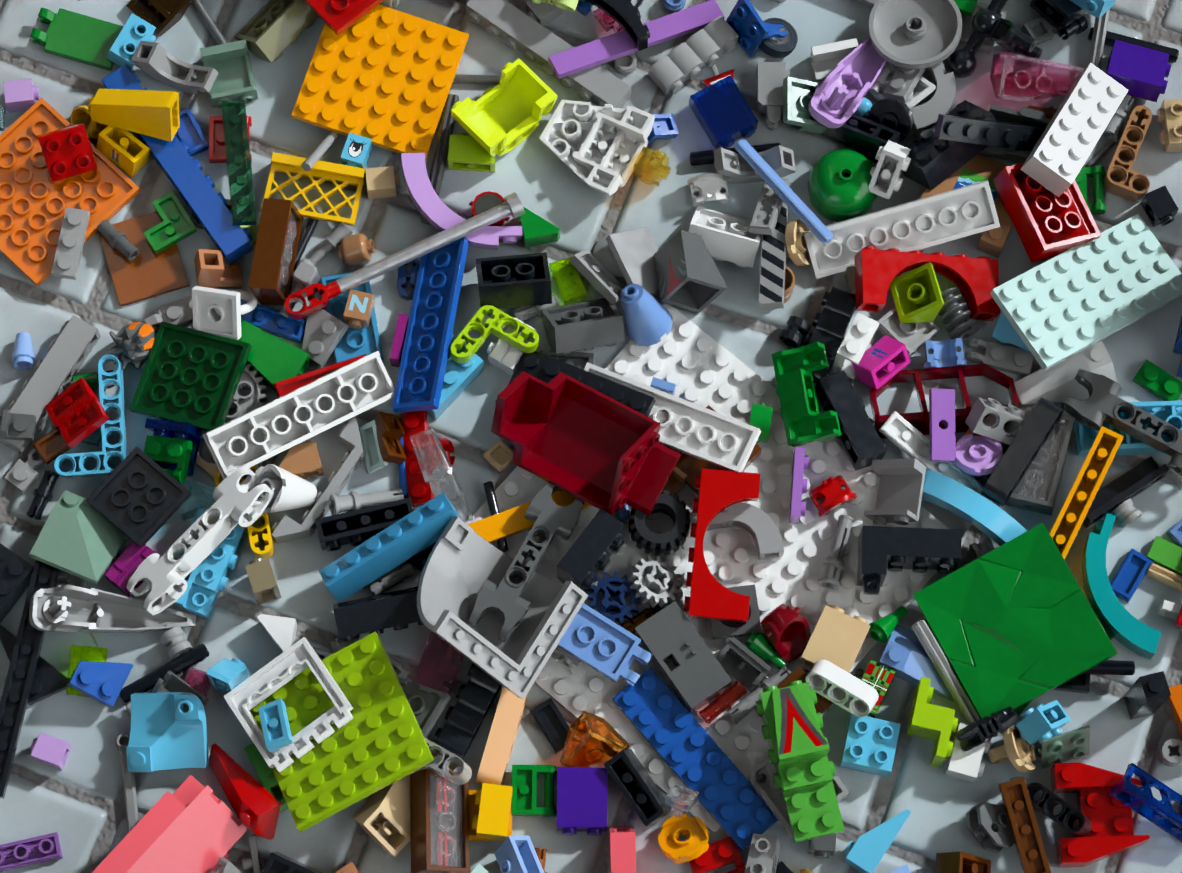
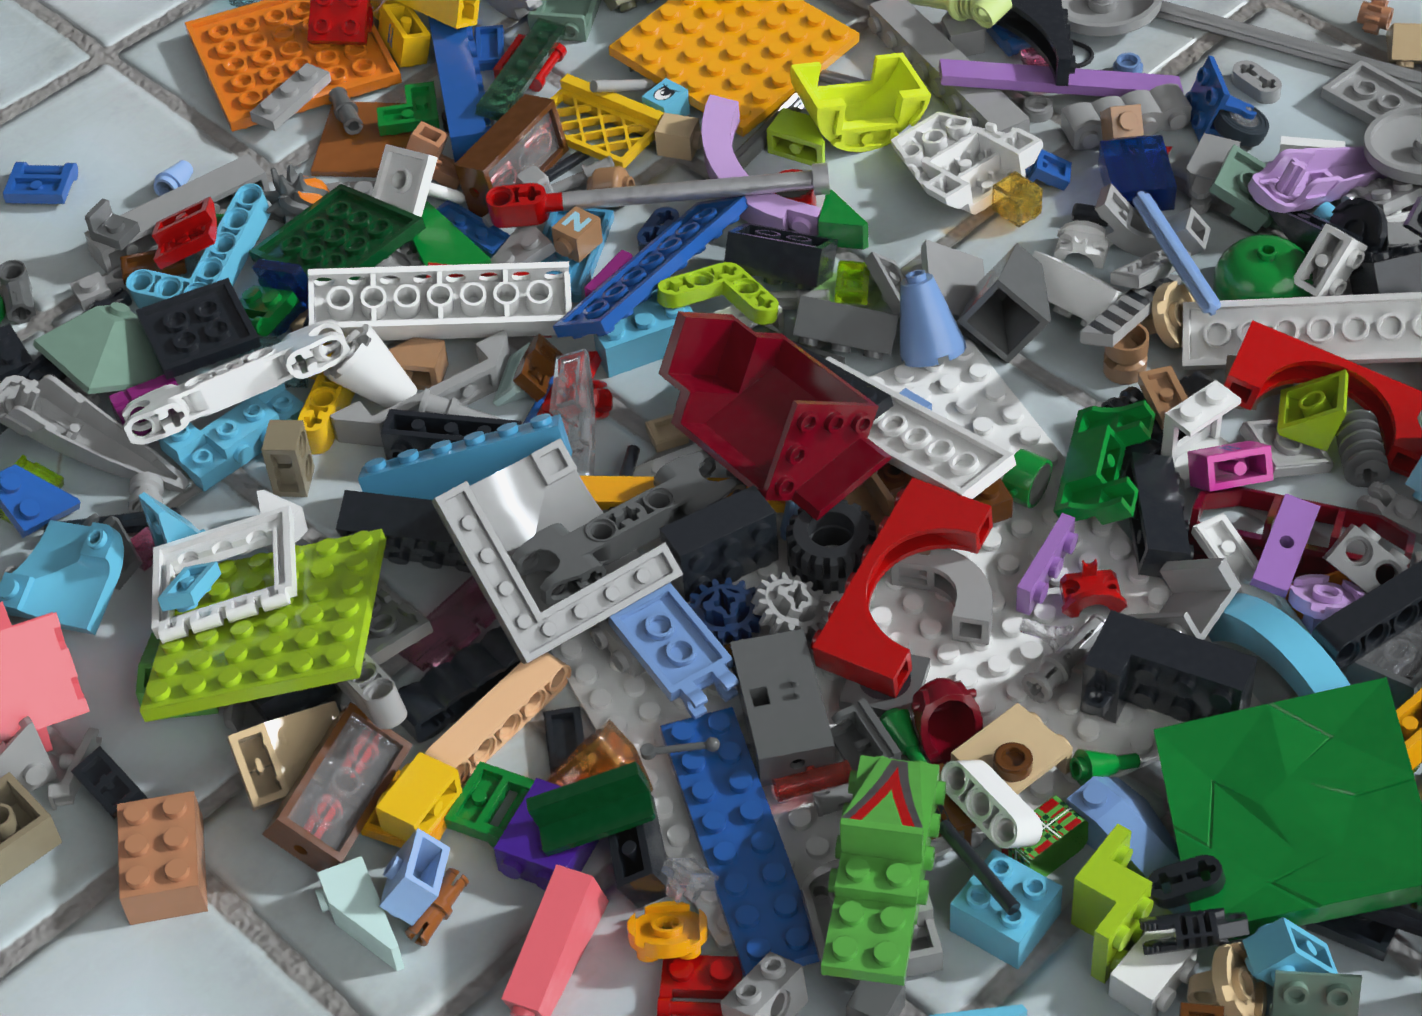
camera: 30 degrees right, 25 degrees down
(247, 797) = (112, 679): red wedge -> none
(611, 784) = (592, 808): none -> dark green panel
(617, 722) = (648, 750): none -> dark grey hinge
(700, 75) = (1121, 122): none -> medium nougat brick
(817, 536) = (1045, 632): none -> clear bar
(824, 324) = (1161, 391): none -> medium nougat plate
(841, 651) = (1013, 762): none -> reddish brown tile
(852, 734) = (979, 868): none -> black bar
(944, 353) = (1326, 486): medium blue piece -> none
(946, 671) = (1157, 820): light grey axle -> none
(973, 701) = (1186, 881): none -> black beam

